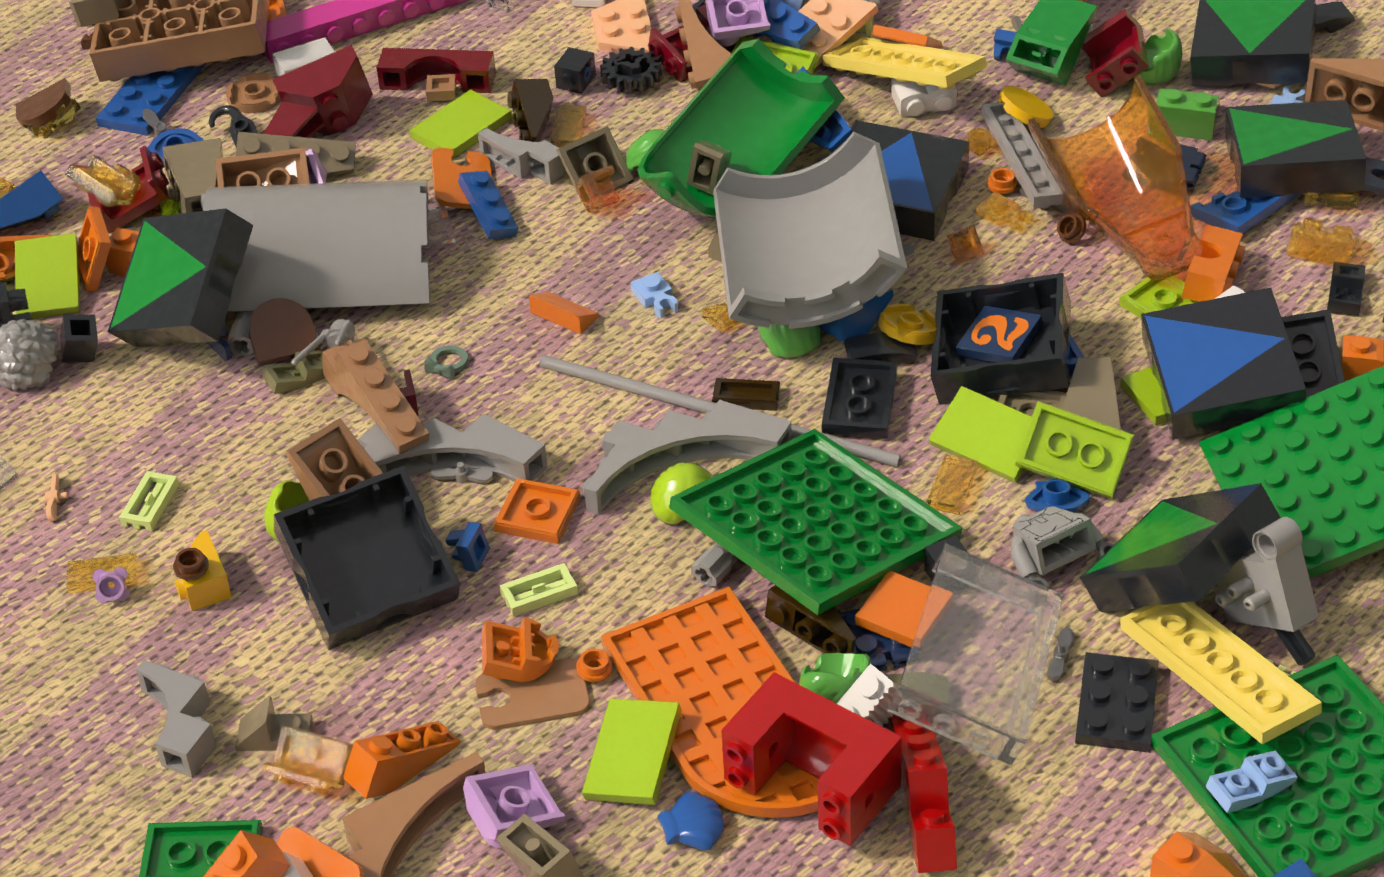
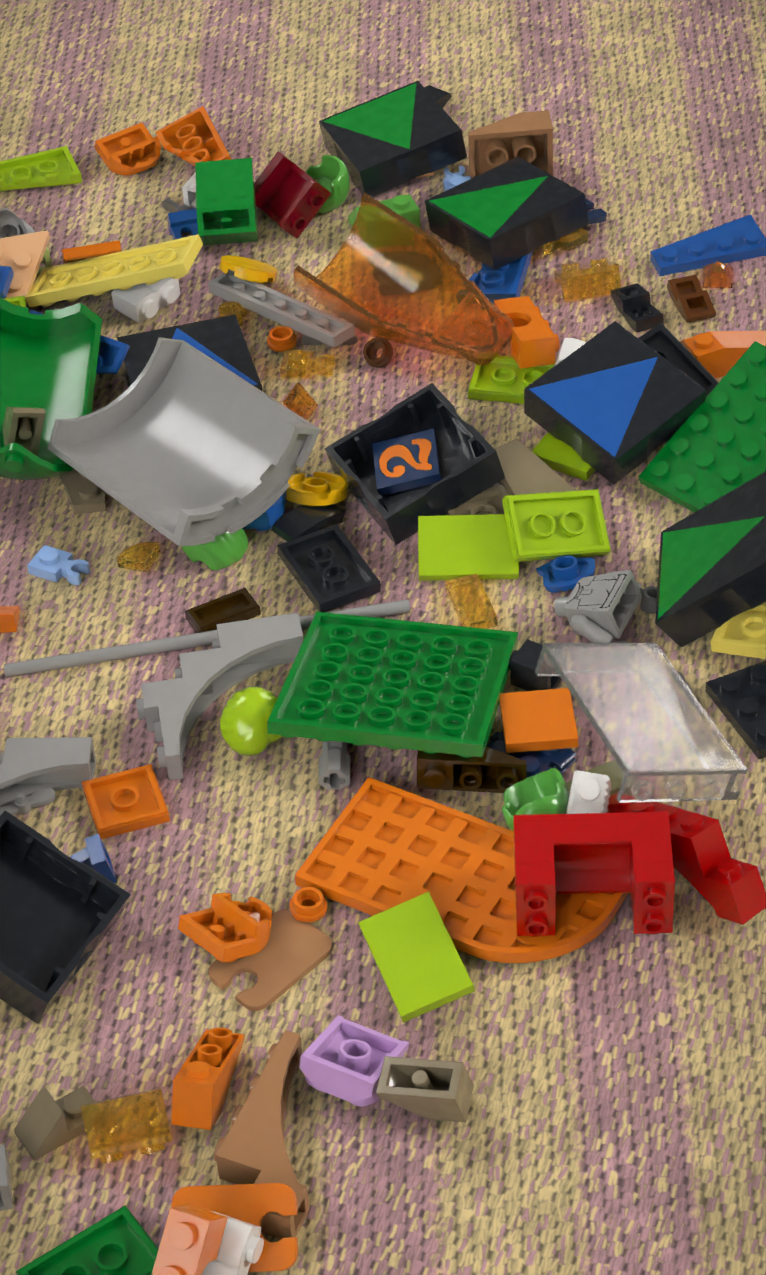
camera: 35 degrees left, 0 degrees up
(540, 594) = (198, 870): yellowish green tile -> none
(693, 821) = (519, 987): blue animal -> none

